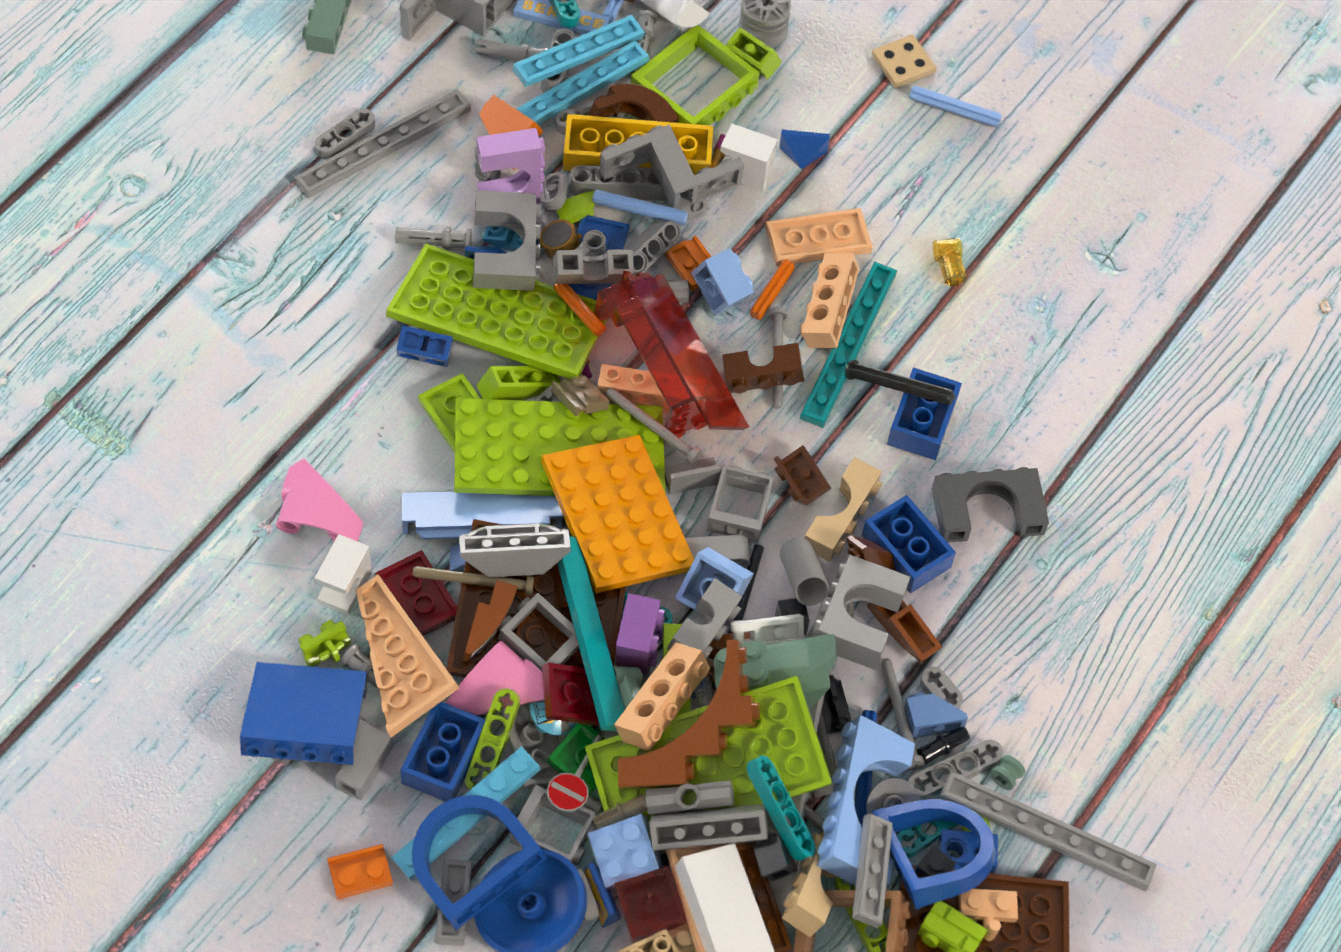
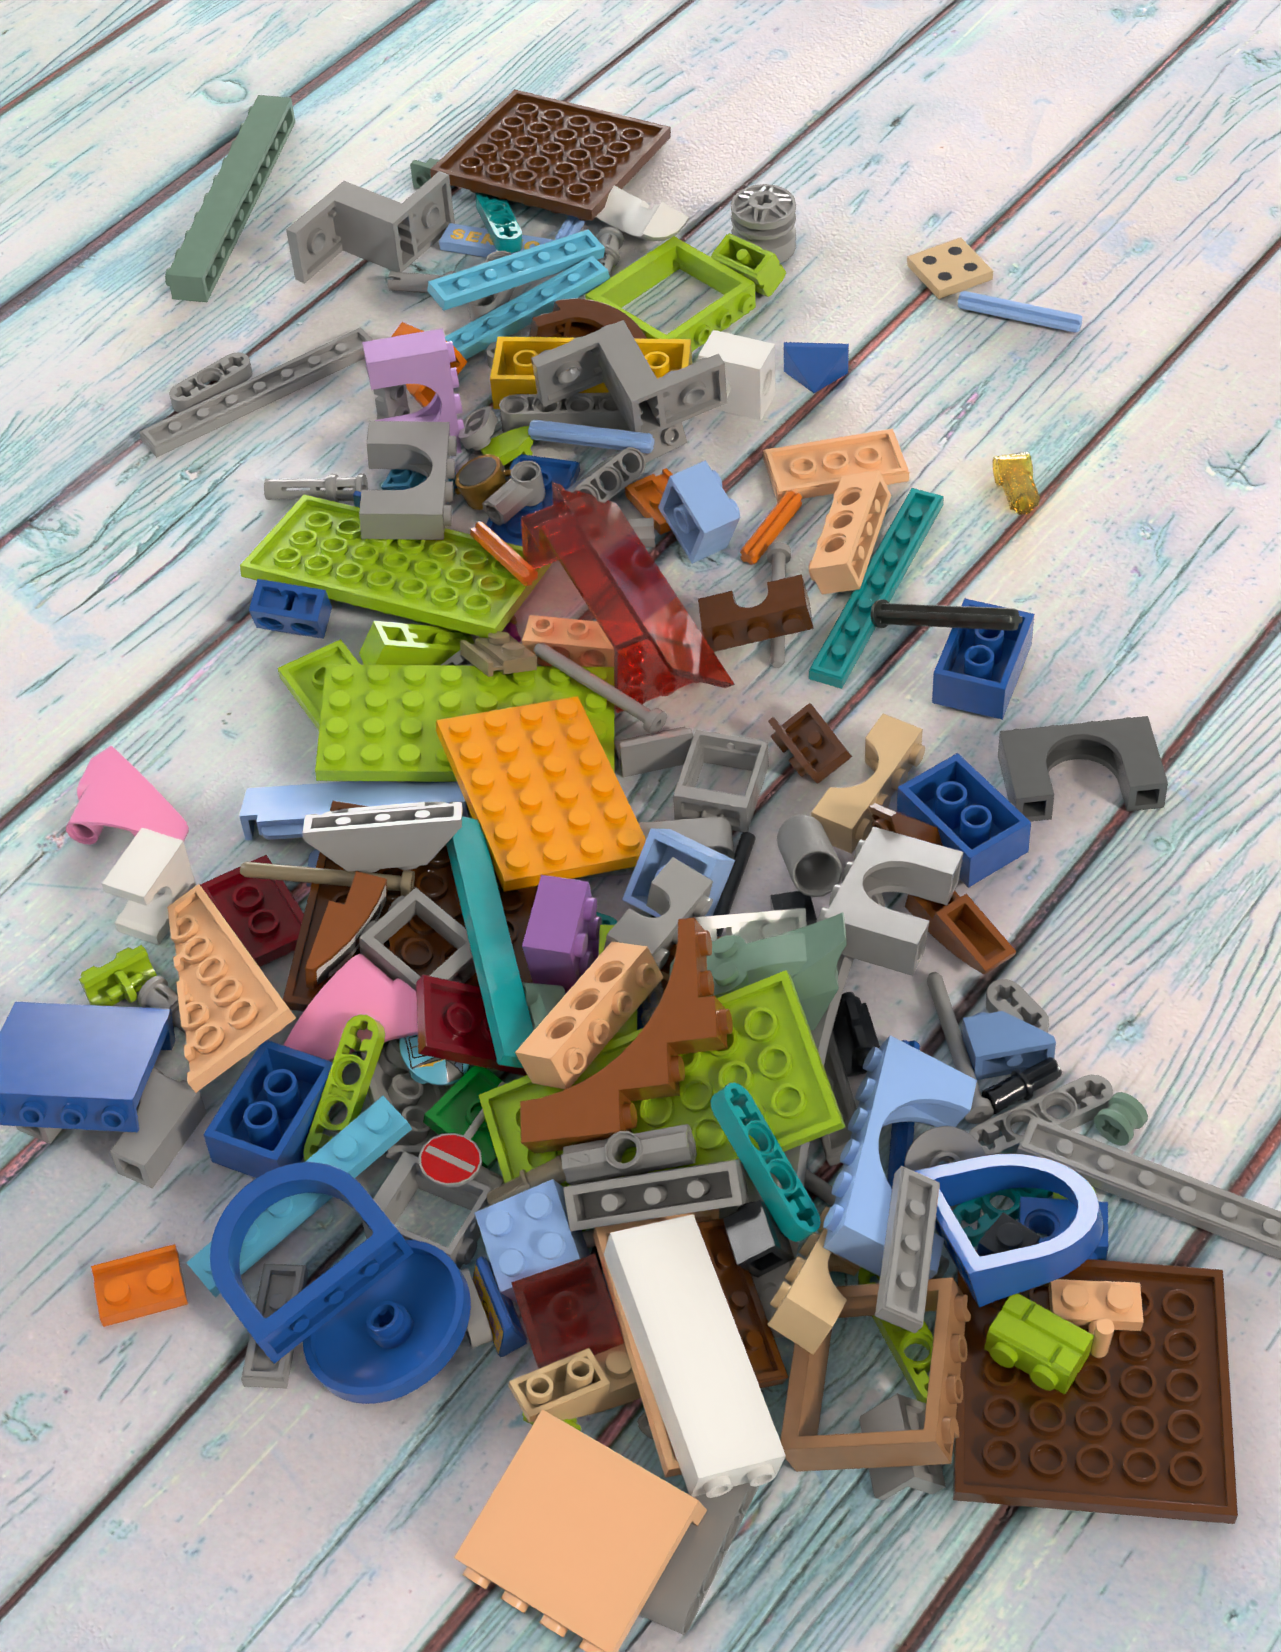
camera: 10 degrees right, 10 degrees down
(575, 268) = (495, 502): light grey arch -> none

